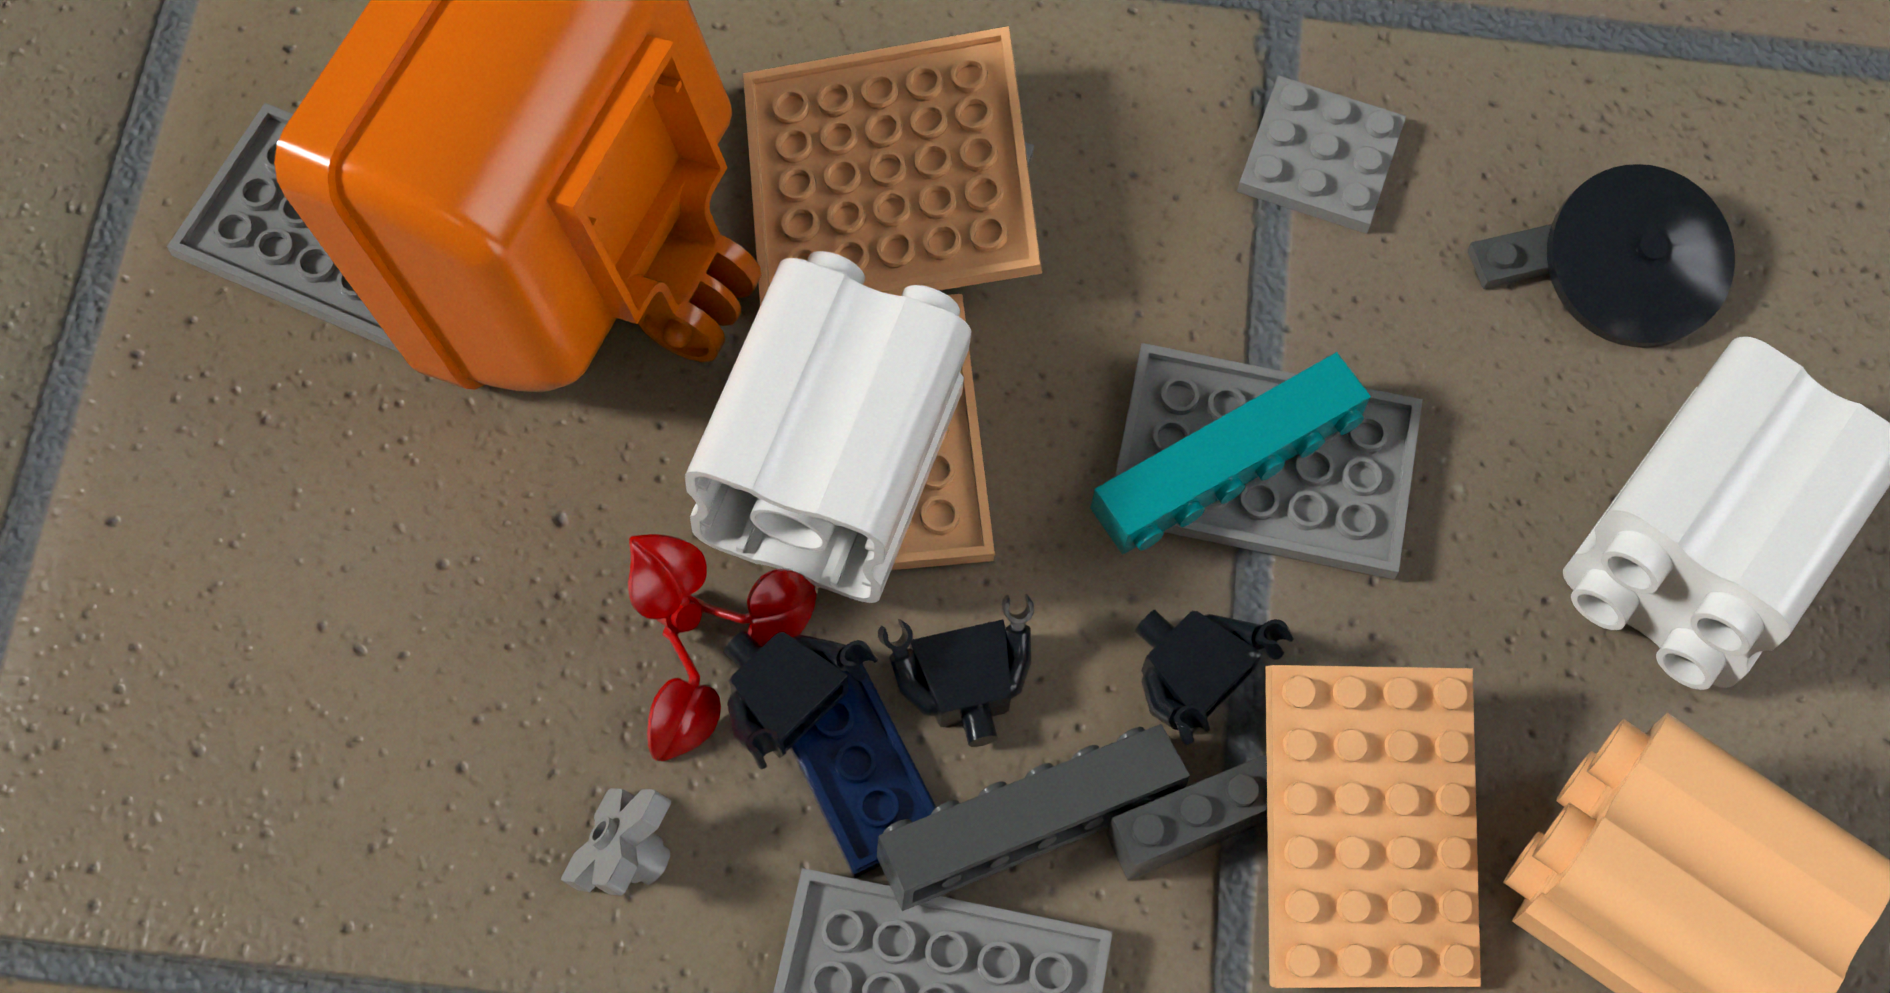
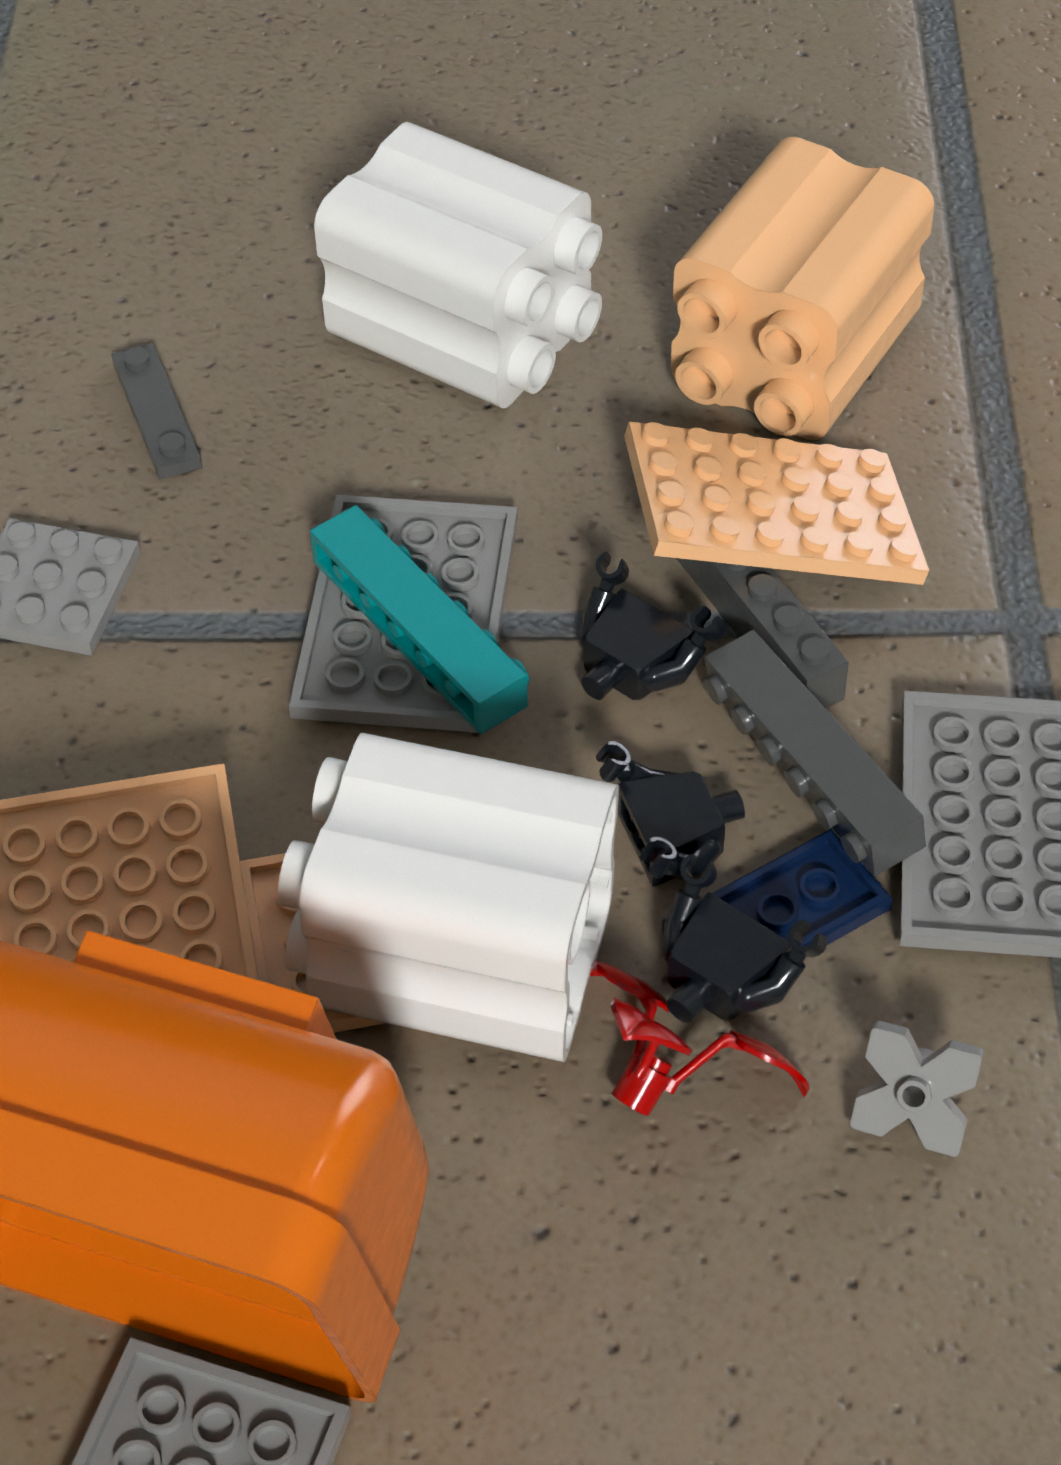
camera: 90 degrees left, 15 degrees down
(1640, 255) = (172, 349): black dish -> none

